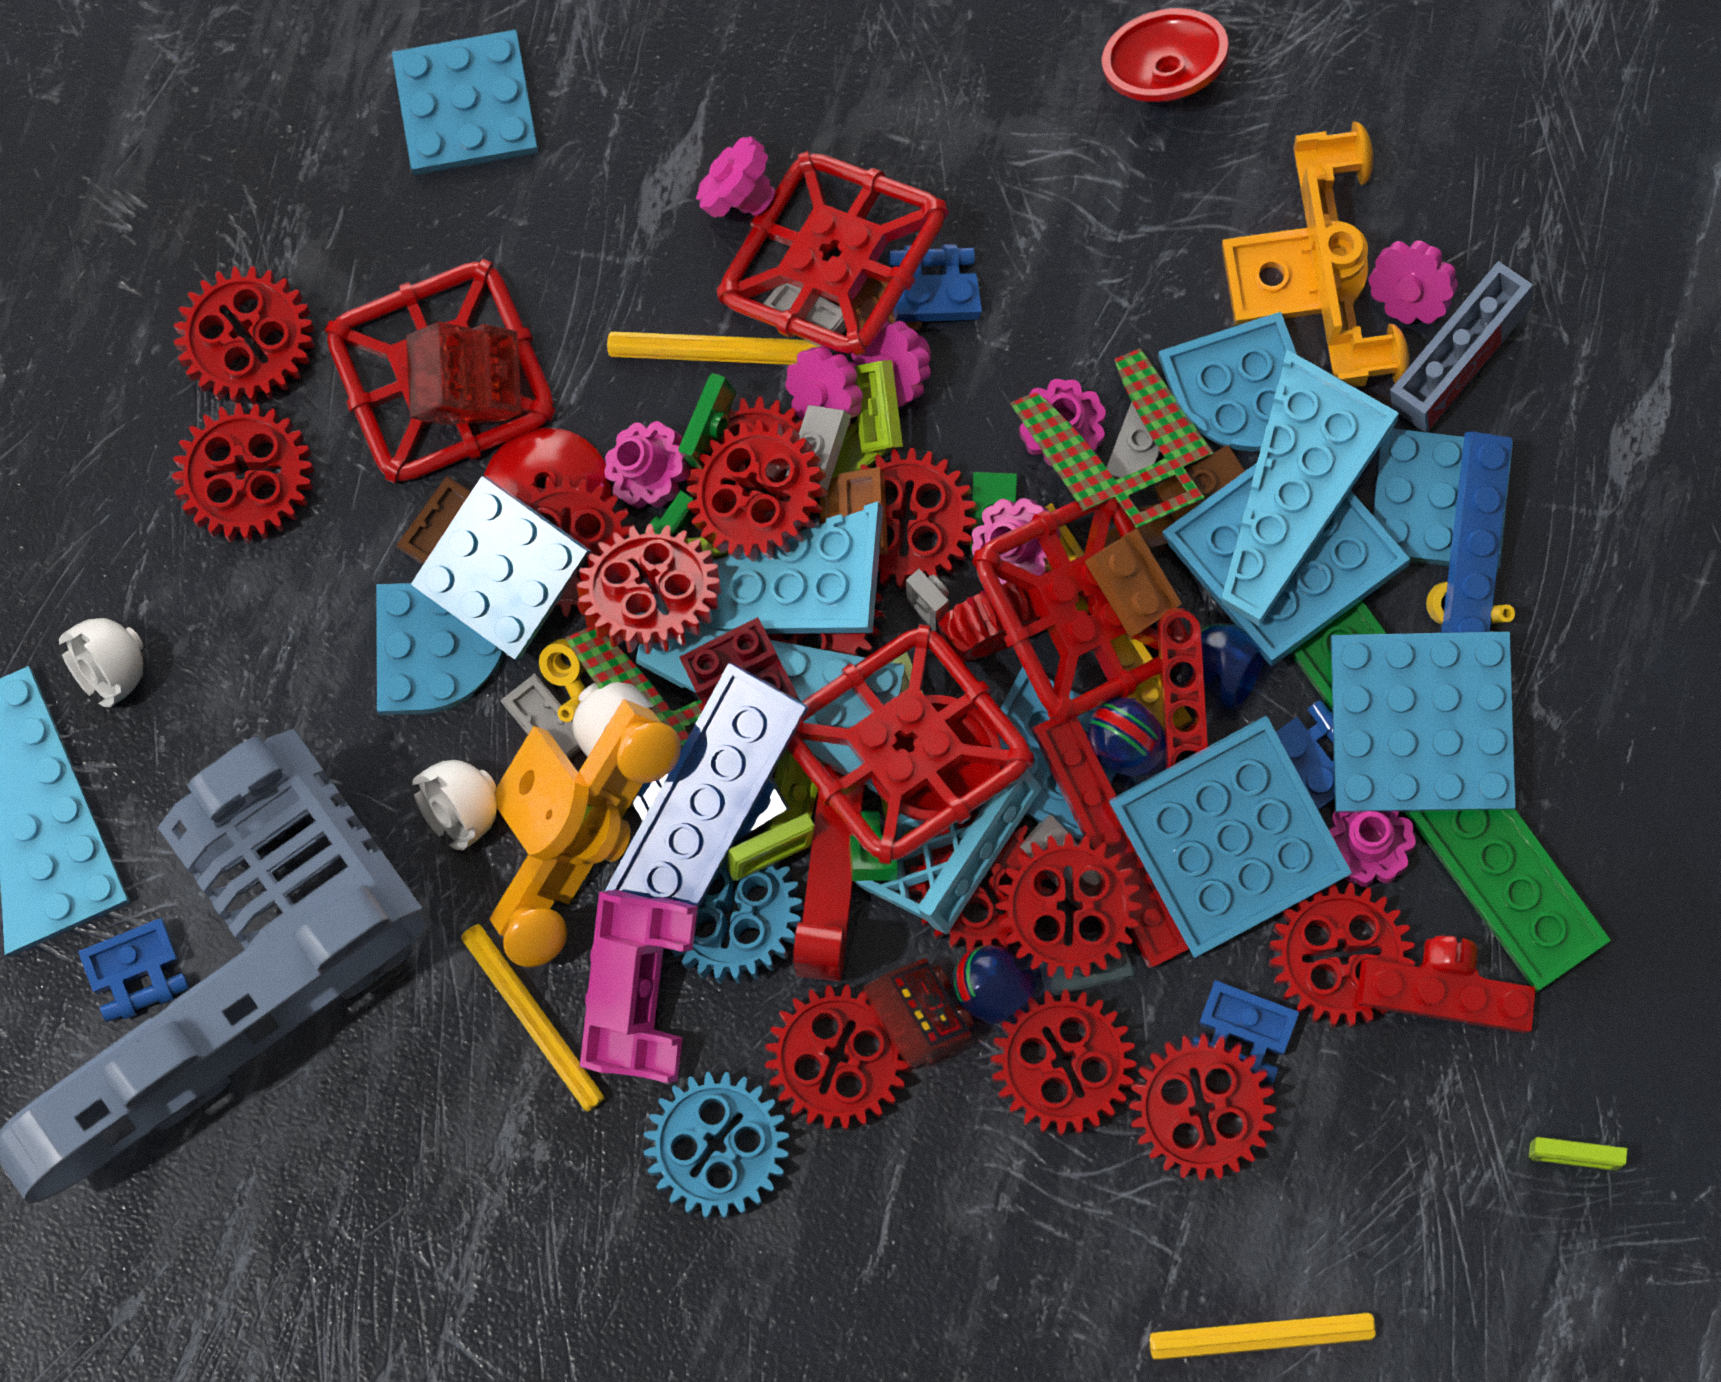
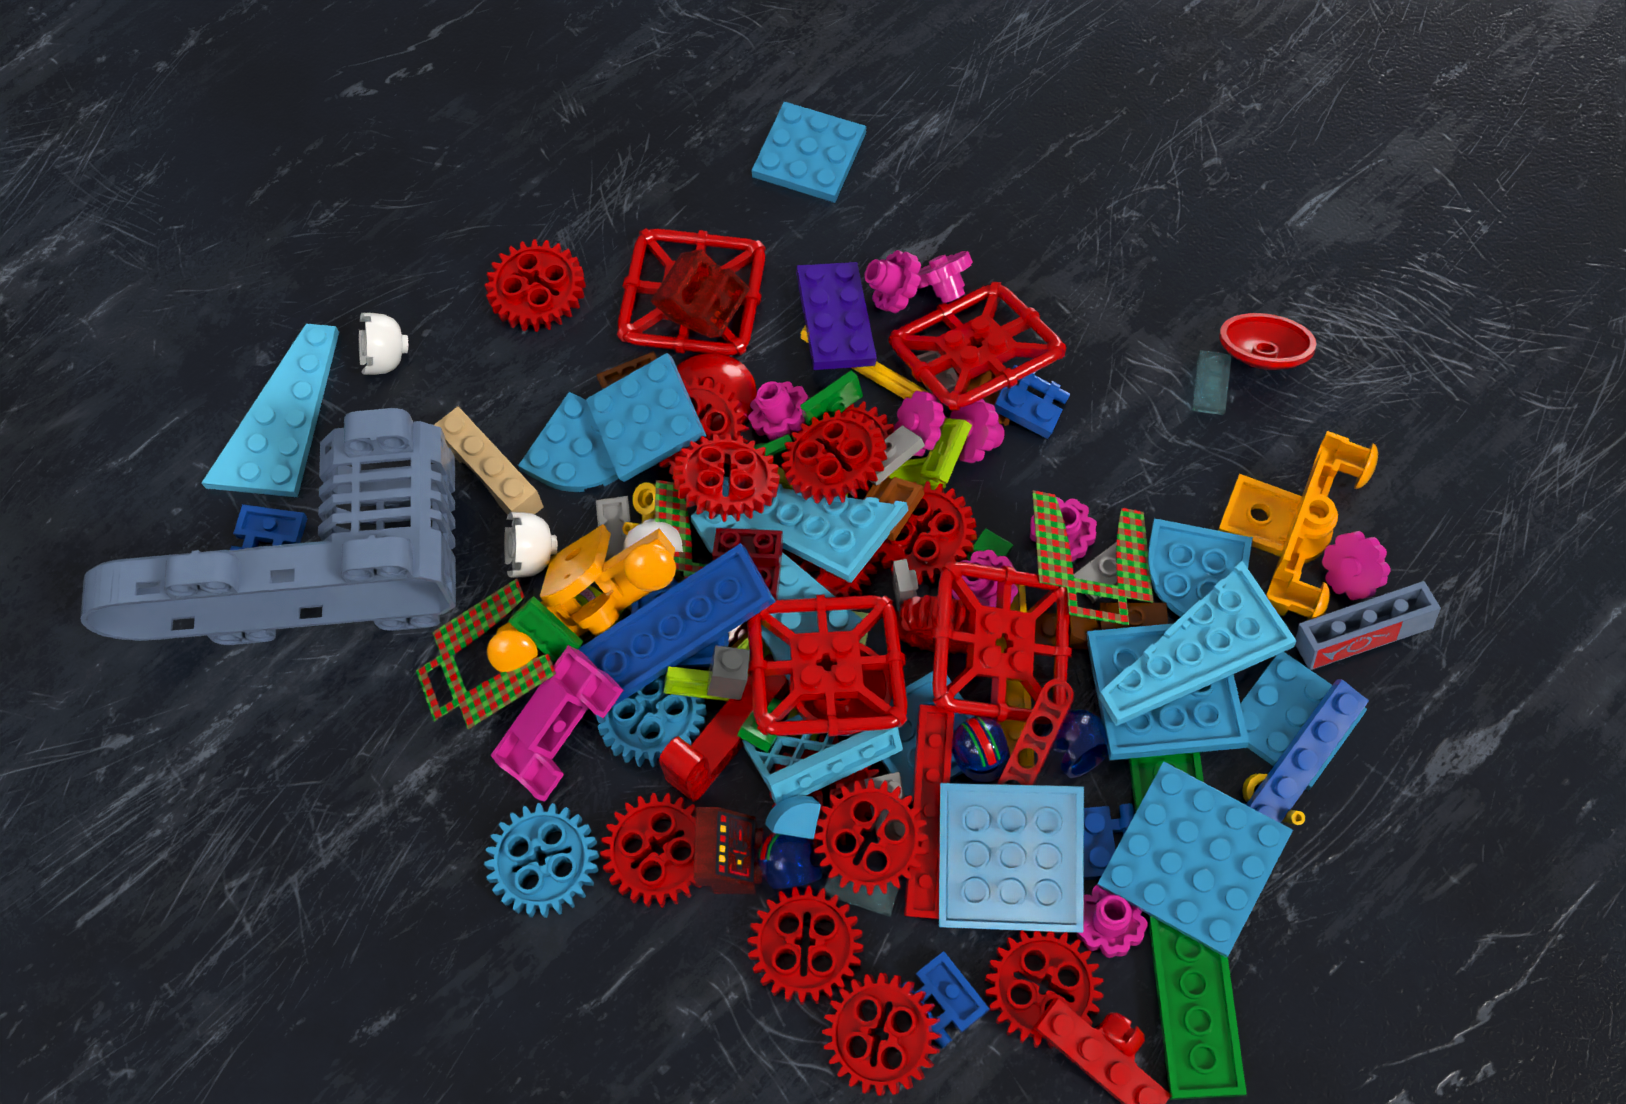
camera: 30 degrees right, 10 degrees down
(213, 357) = (617, 206): red gear -> none
(341, 729) = (493, 469): none -> tan arch
(532, 1017) = (485, 729): yellow axle -> none
(542, 994) = (498, 690): none -> piece
(558, 889) = (544, 629): none -> green plate
(638, 306) = (835, 316): none -> dark purple plate
(685, 223) = (893, 280): none -> dark pink plant
(803, 817) = (728, 672): none -> dark grey brick
(973, 933) = (795, 816): none -> dark azure brick
(1127, 140) = (1211, 382): none -> clear light blue plate
(1133, 582) = (1045, 647): dark orange plate -> none

